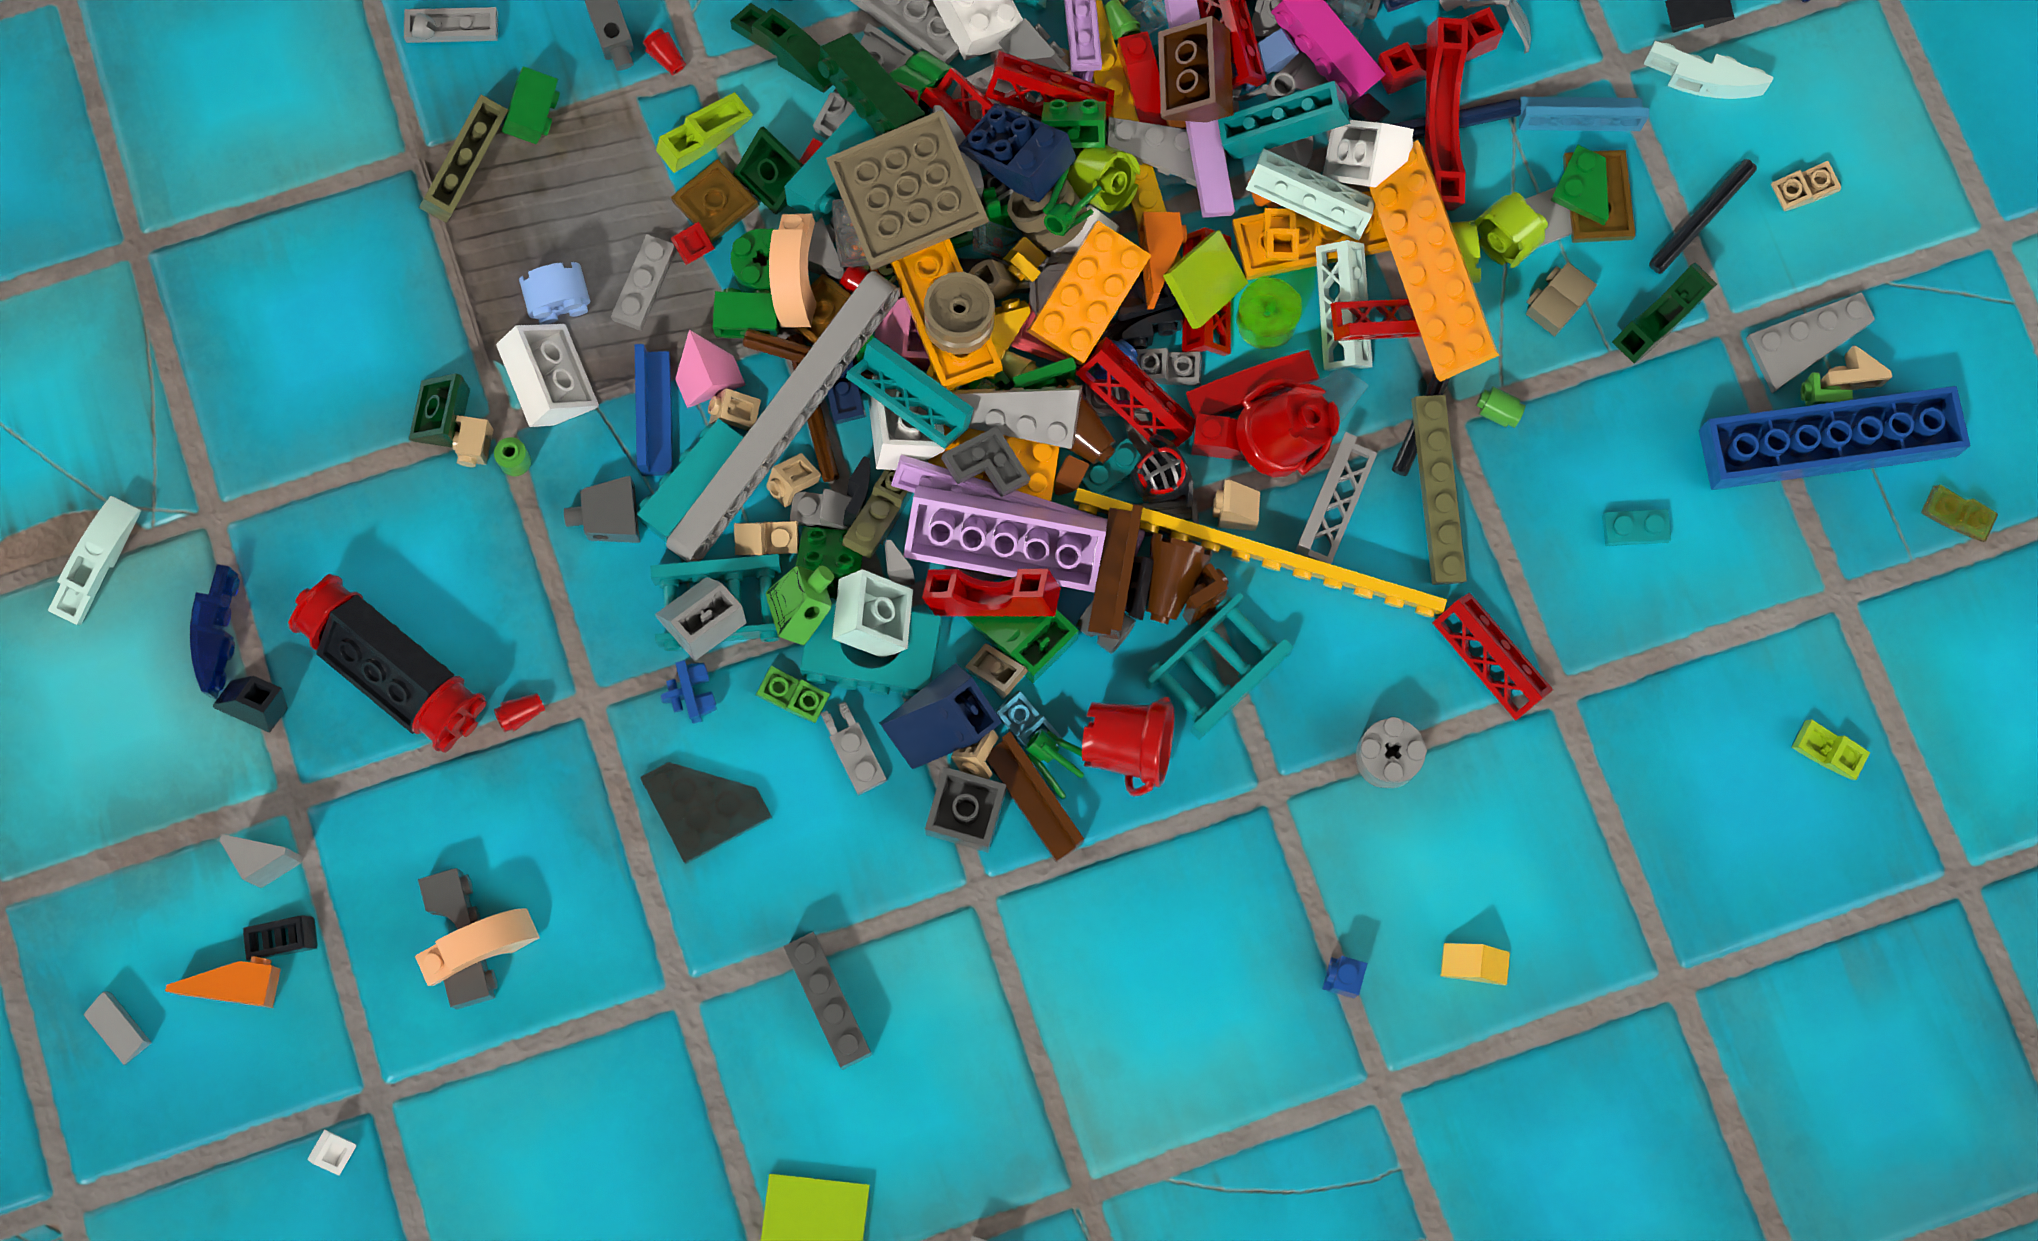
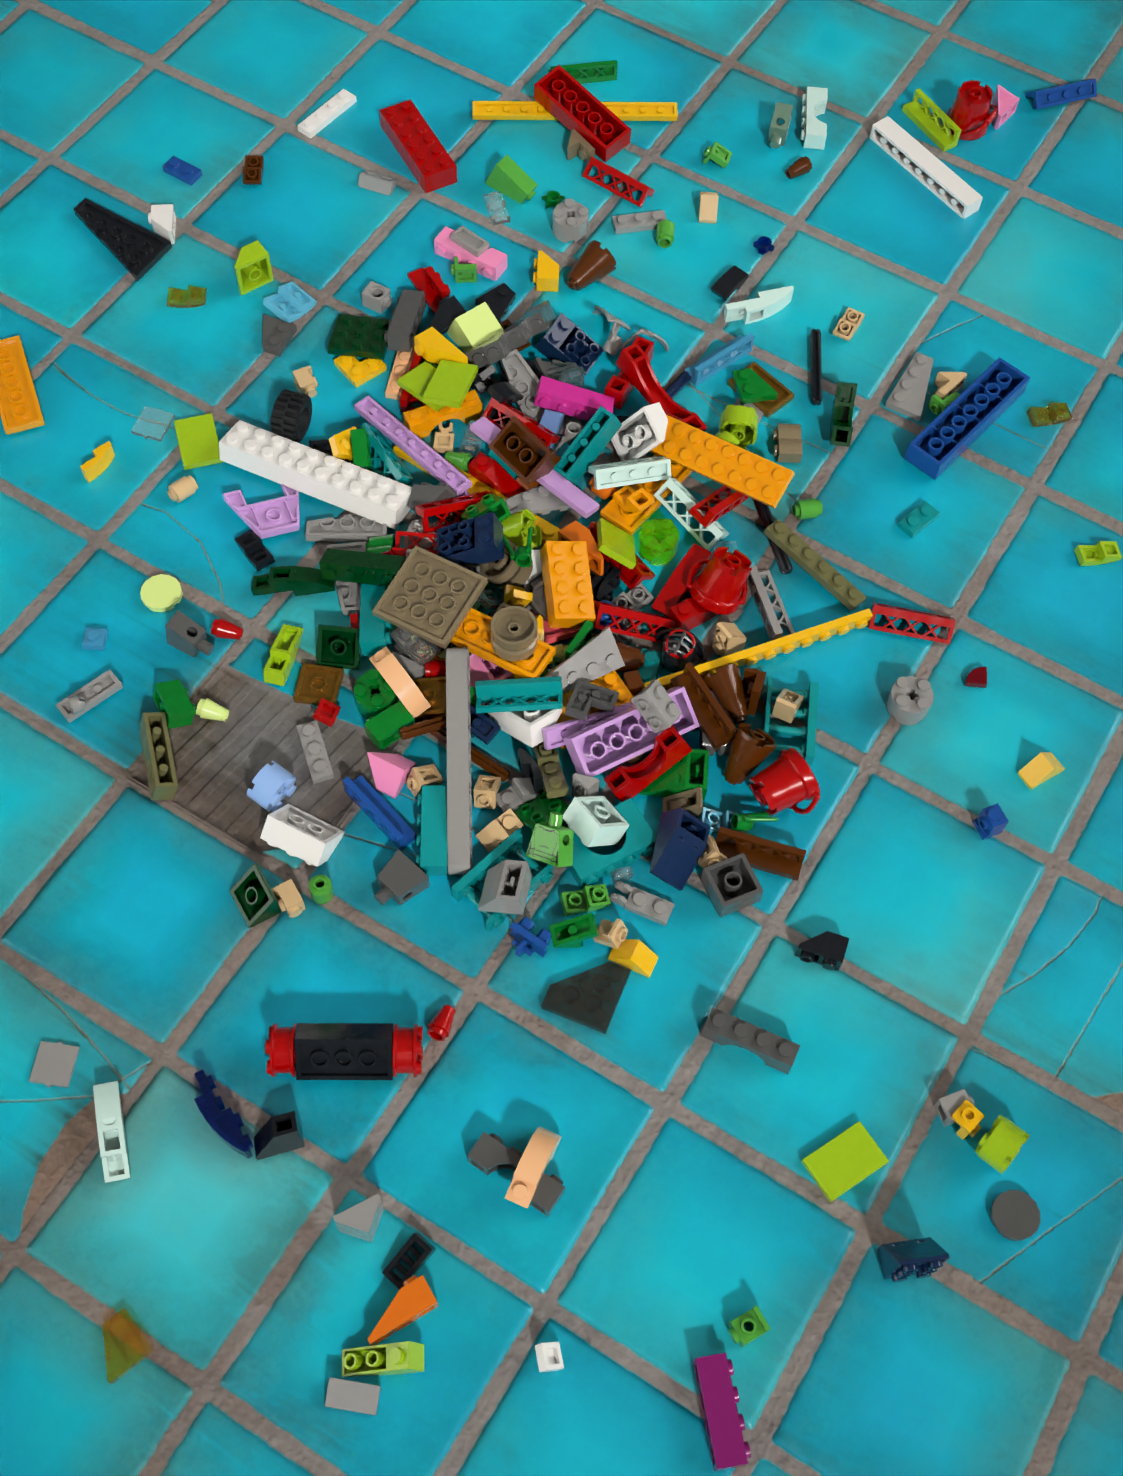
camera: 40 degrees left, 15 degrees down
(98, 439) = (54, 1064): none -> light grey piece
(172, 1018) = (383, 1359): none -> lime slope
(568, 144) = (211, 710): none -> yellowish green cone
(741, 722) = (574, 931): none -> green slope
(783, 757) = (611, 933): none -> tan bracket
(788, 803) = (634, 956): none -> yellow slope
(857, 699) = (622, 874): none -> clear tile
(1007, 966) = (825, 949): none -> black slope
(1048, 533) = (656, 706): none -> light grey bracket
(1125, 666) = (747, 752): none -> reddish brown cone
(1230, 644) = (787, 705): none -> tan slope
(1508, 789) = (977, 678): none -> dark red tile

